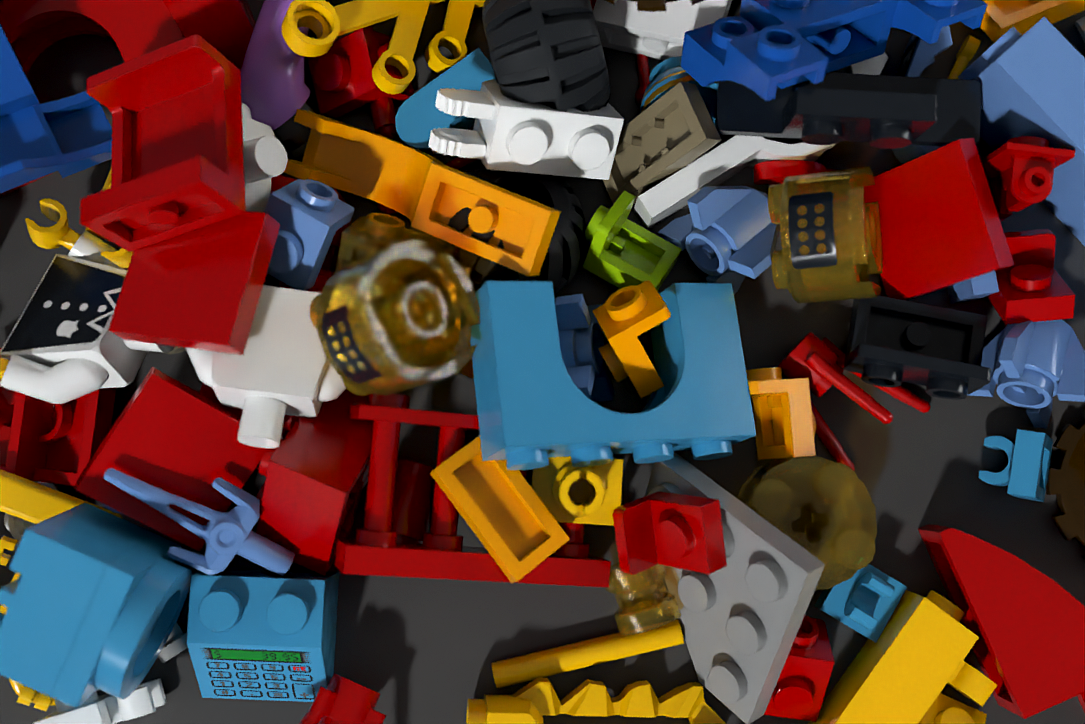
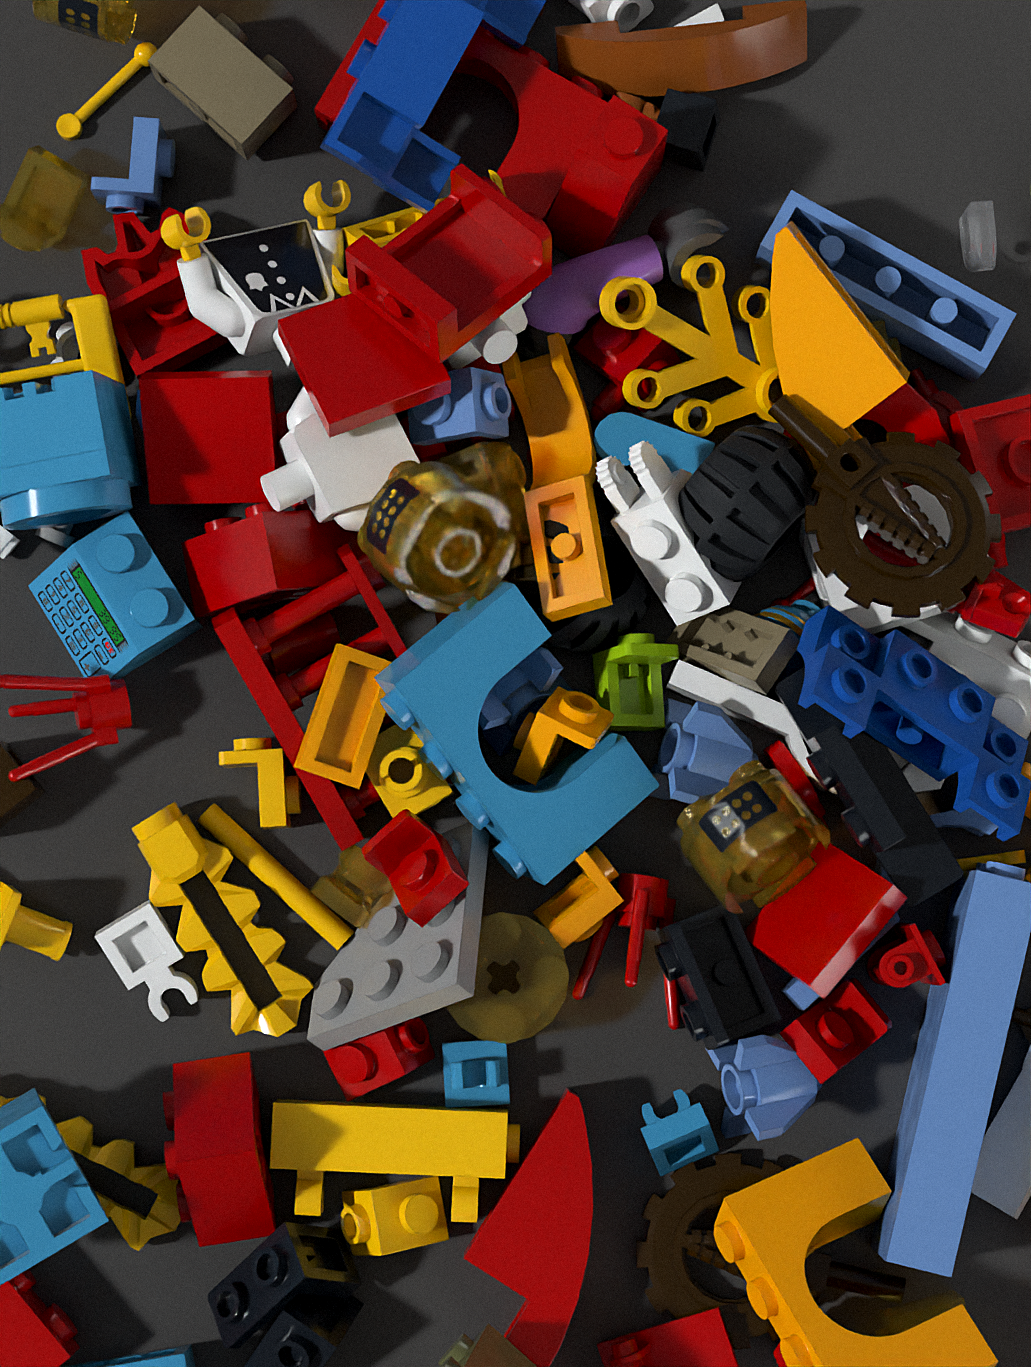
camera: 55 degrees right, 0 degrees up
(224, 532) = (179, 514): medium blue piece -> none
(517, 605) = (277, 790): none -> yellow bracket

